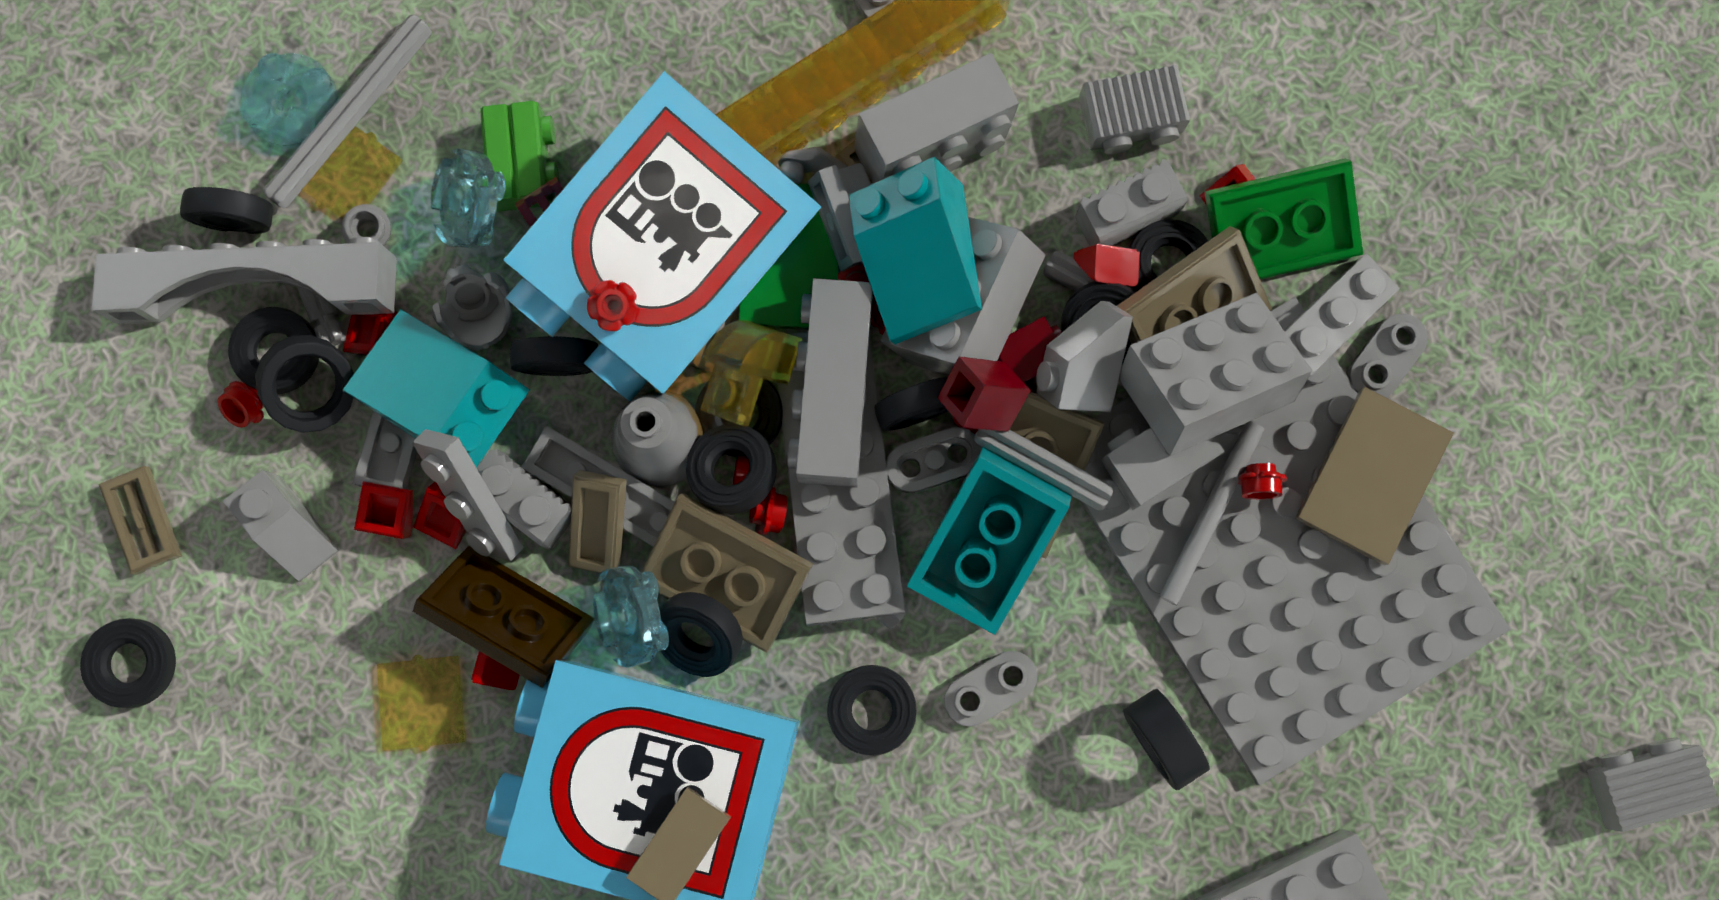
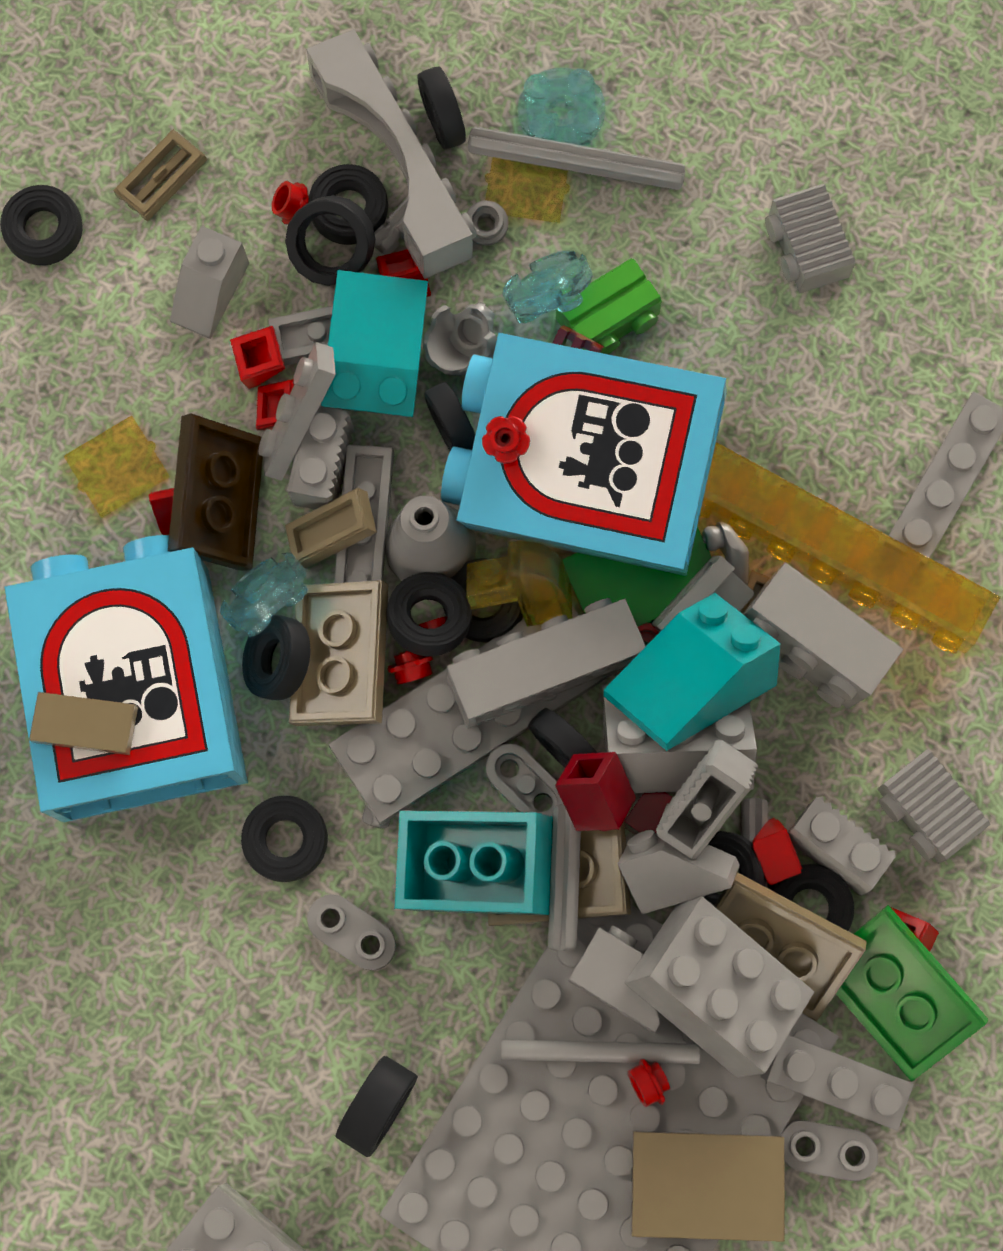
camera: 65 degrees right, 5 degrees down
(1043, 296) = (706, 799): none -> light grey brick

